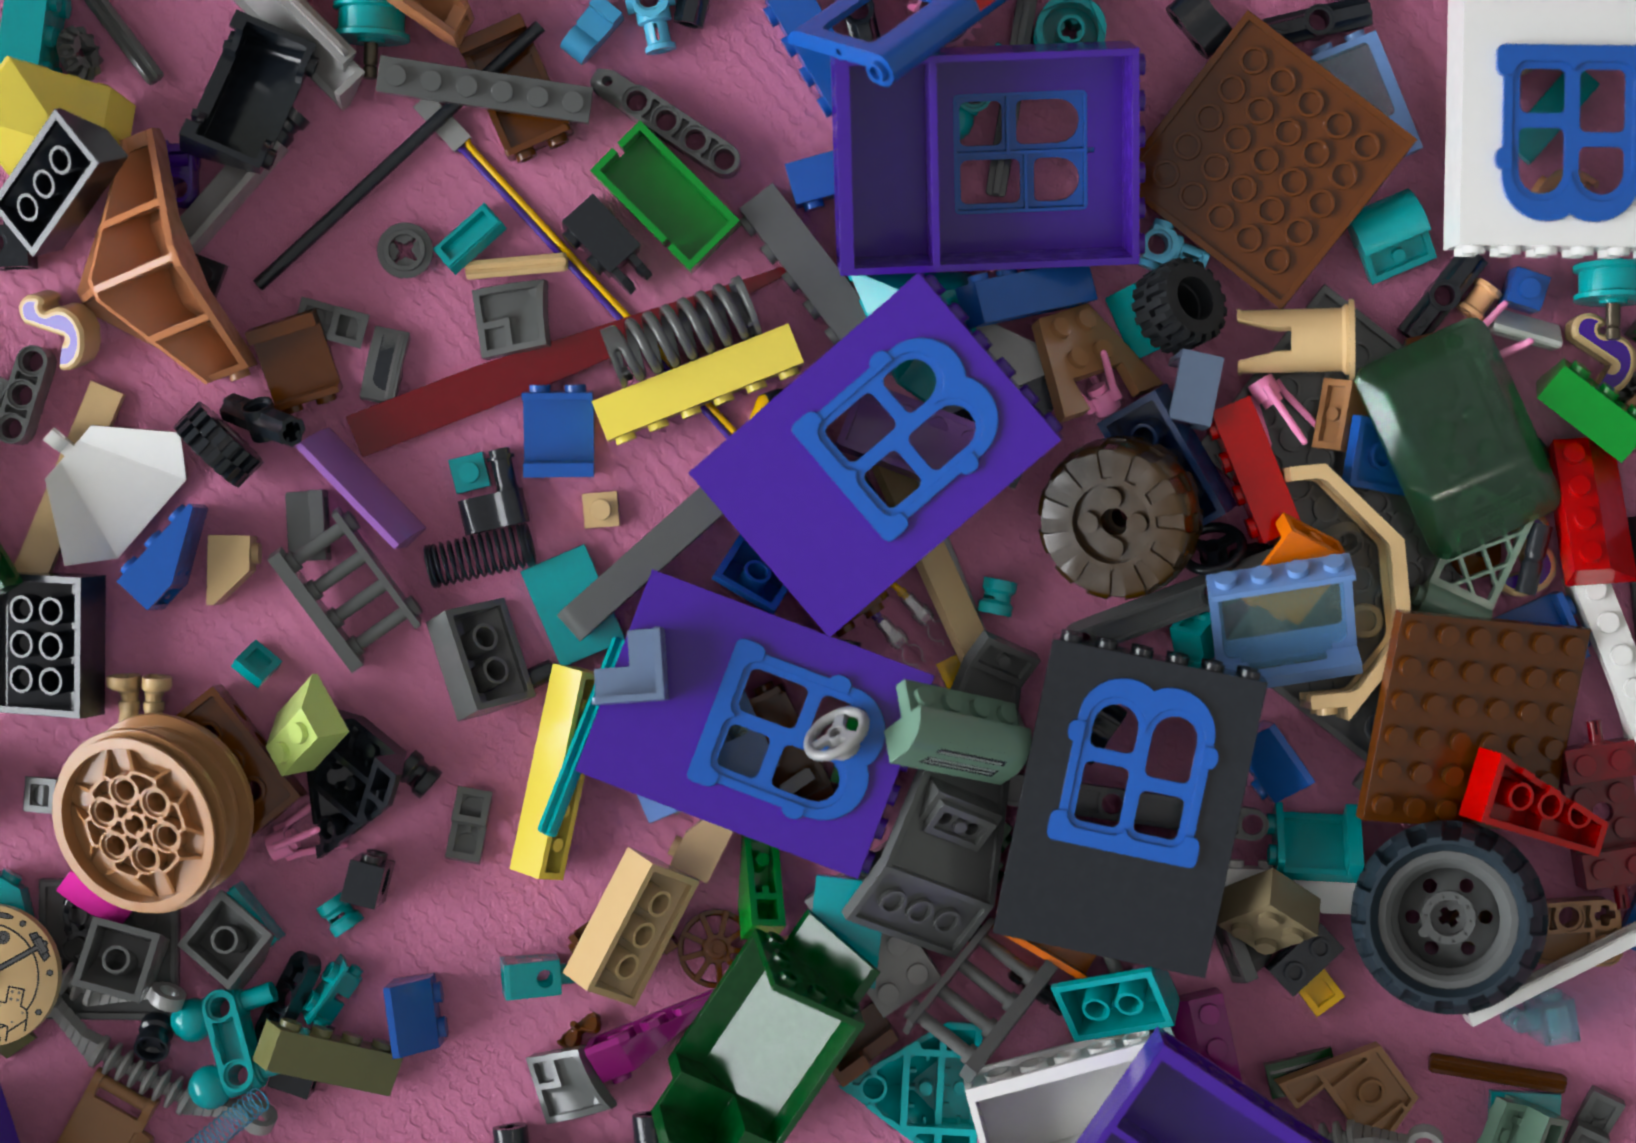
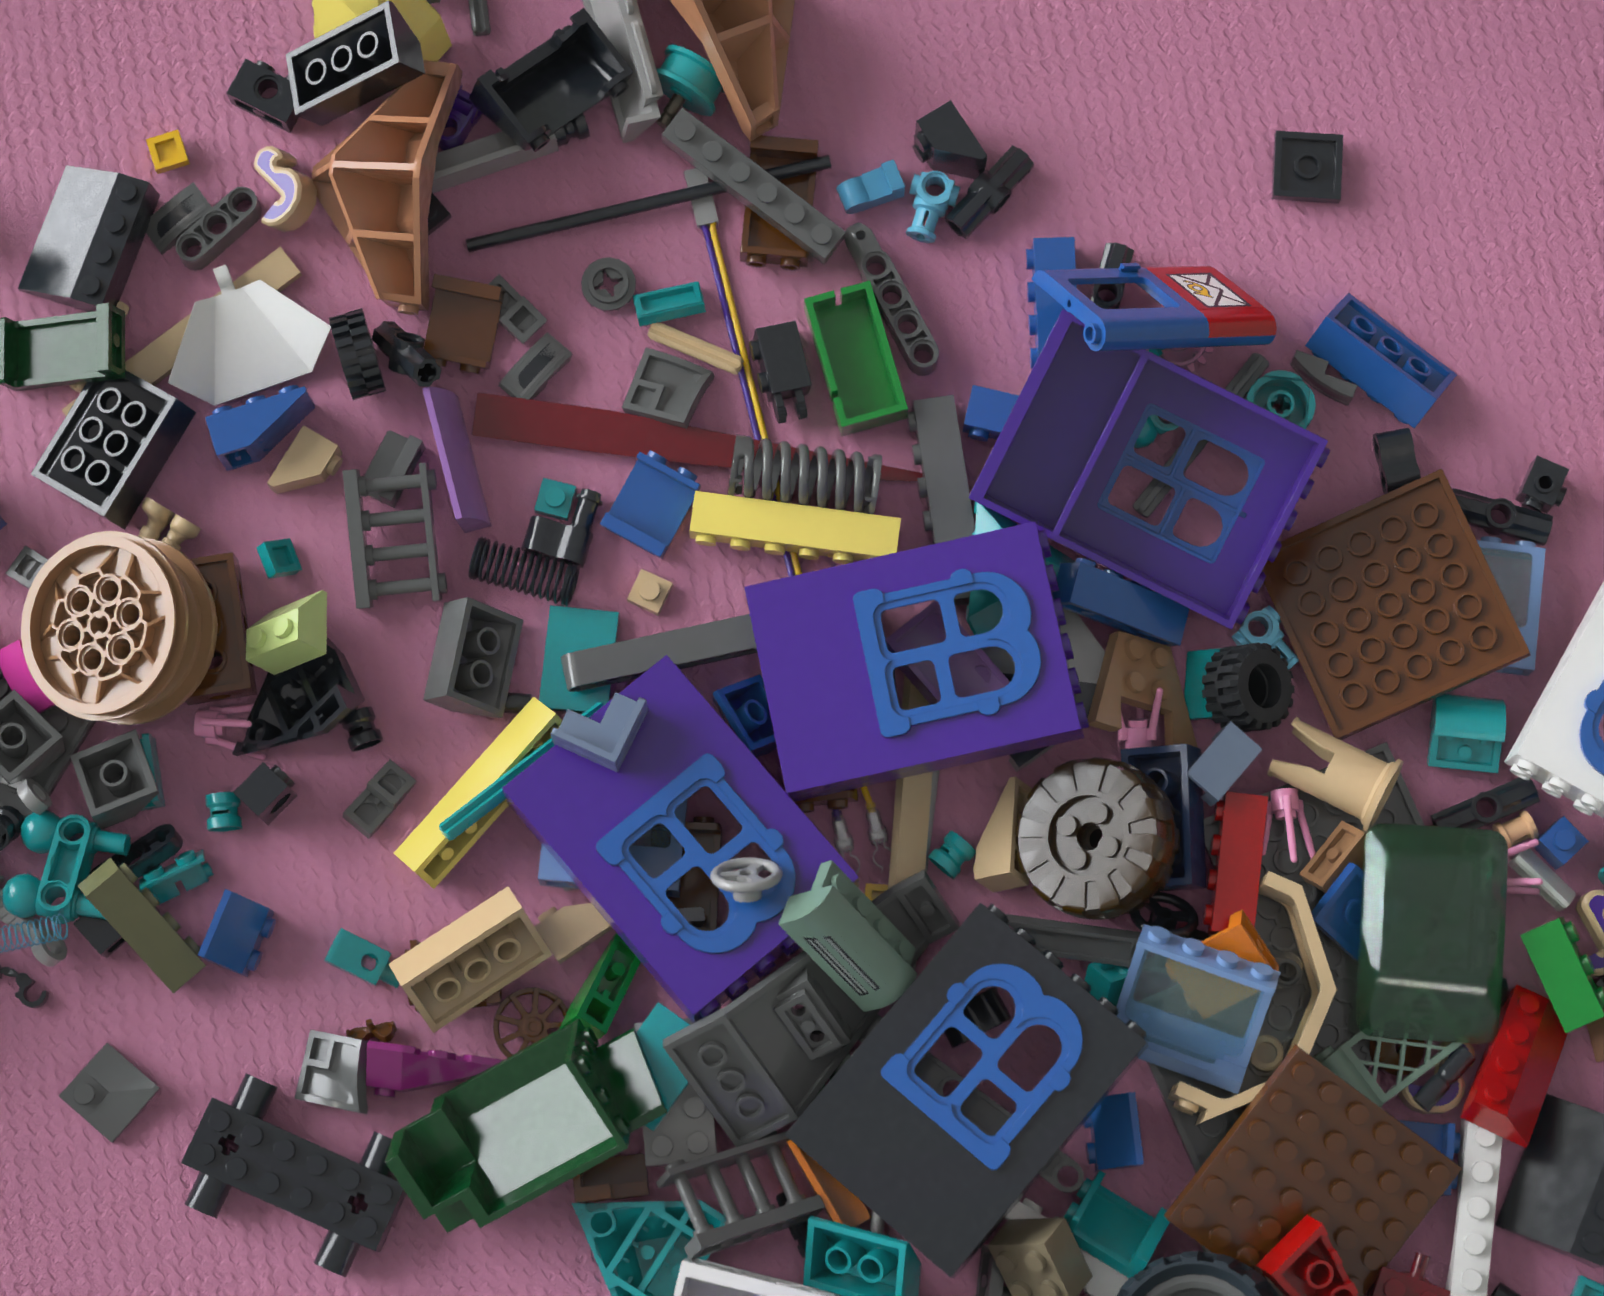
camera: 25 degrees right, 10 degrees down
(1035, 573) = (996, 856): none -> tan slope

